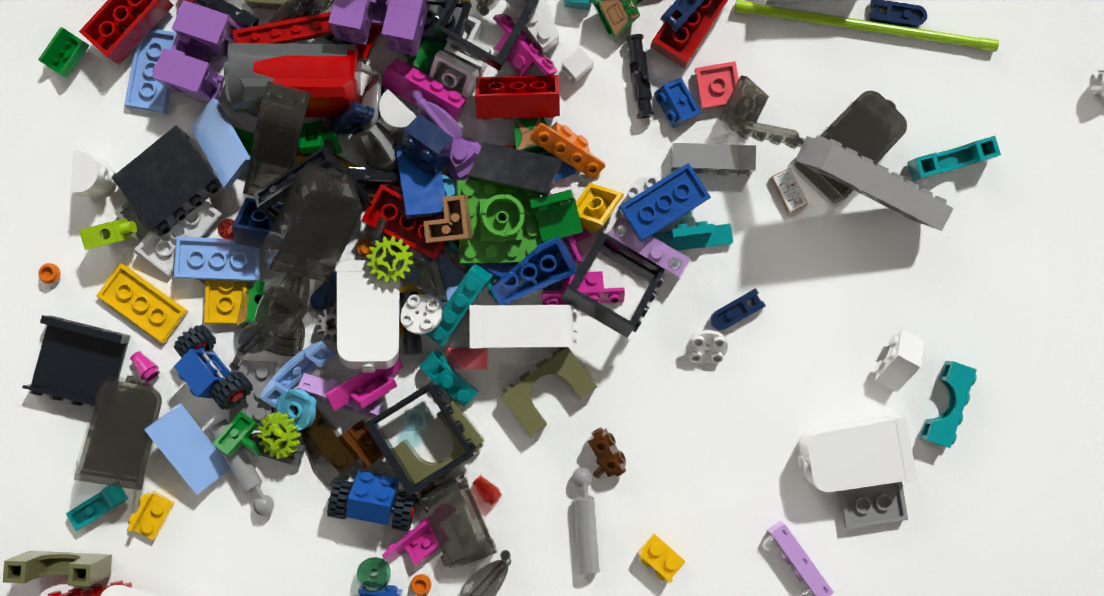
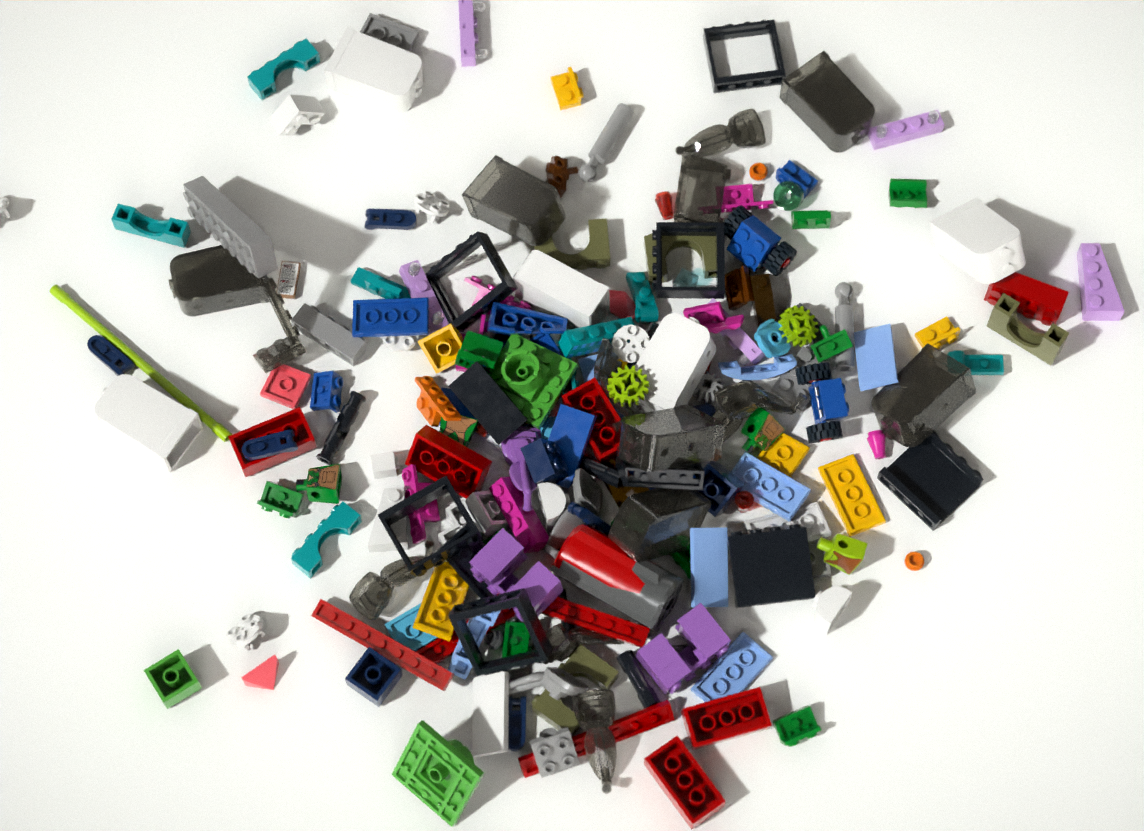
camera: 145 degrees left, 20 degrees down
(343, 561) = (810, 219): none -> green bracket
(456, 222) = (566, 384): medium nougat brick -> none
(625, 394) = (515, 202): none -> clear smoke piece

